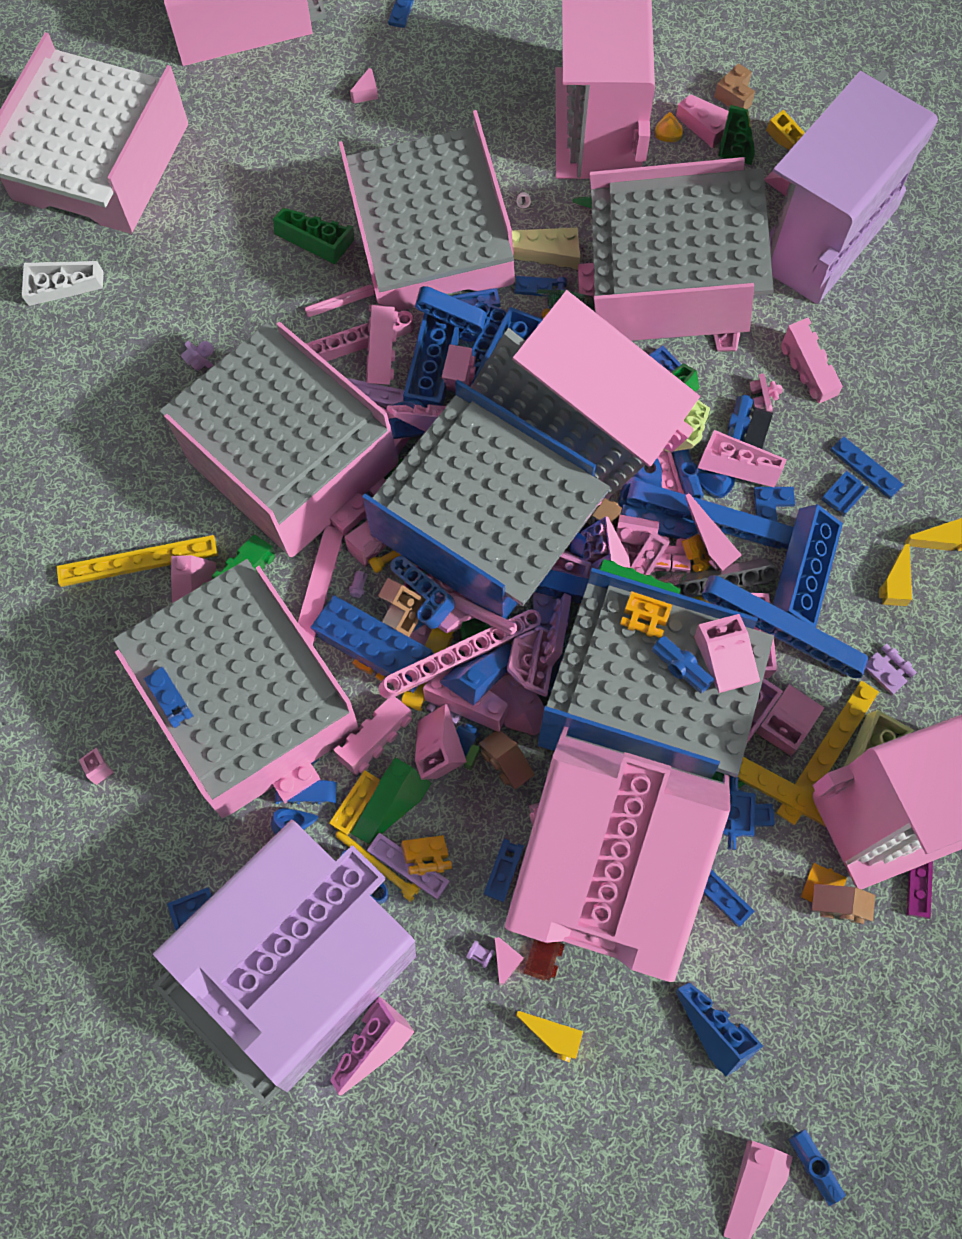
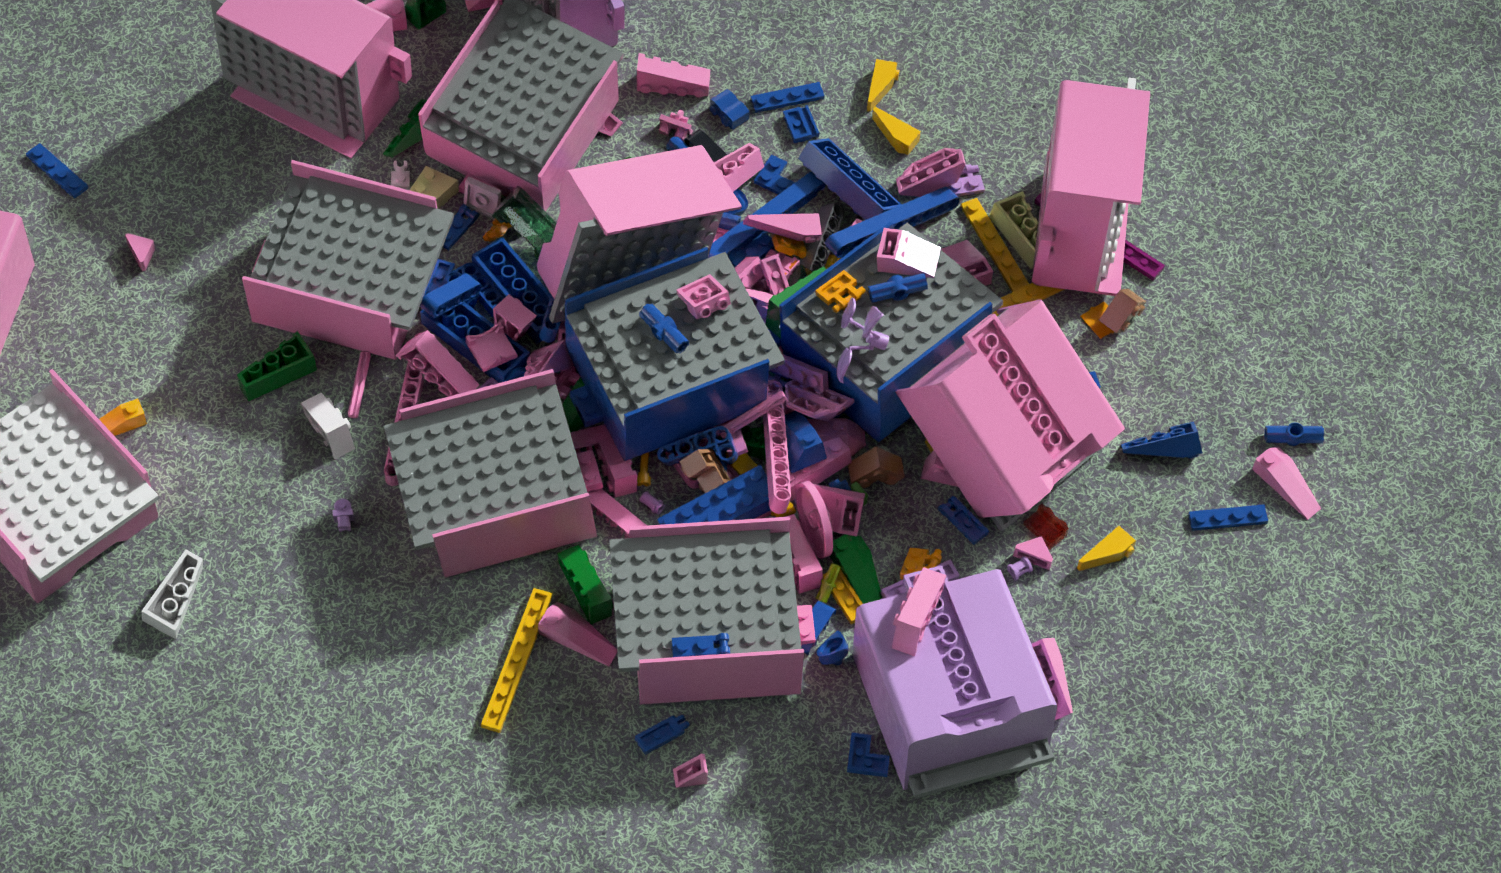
camera: 65 degrees left, 10 degrees down
(123, 718) = (661, 733): none -> blue hinge
(202, 160) = (124, 417): none -> yellow slope
(281, 297) = (329, 424): none -> white wedge
(308, 879) = (917, 610): none -> bright pink wedge
(353, 780) = (828, 583): none -> lime axle
(403, 730) = (814, 519): none -> bright pink dish
(421, 369) = (491, 347): none -> bright pink piece
(482, 477) = (664, 328): none -> blue piece
(539, 493) = (704, 297): none -> bright pink plate
(562, 220) = (400, 177): none -> white plate
(576, 278) = (481, 197): none -> white plate
(604, 672) = (874, 338): none -> lavender plant
(671, 1144) = (1228, 517): none -> blue plate
(815, 426) = (729, 109): none -> blue brick
(870, 633) = (931, 173): none -> bright pink wedge

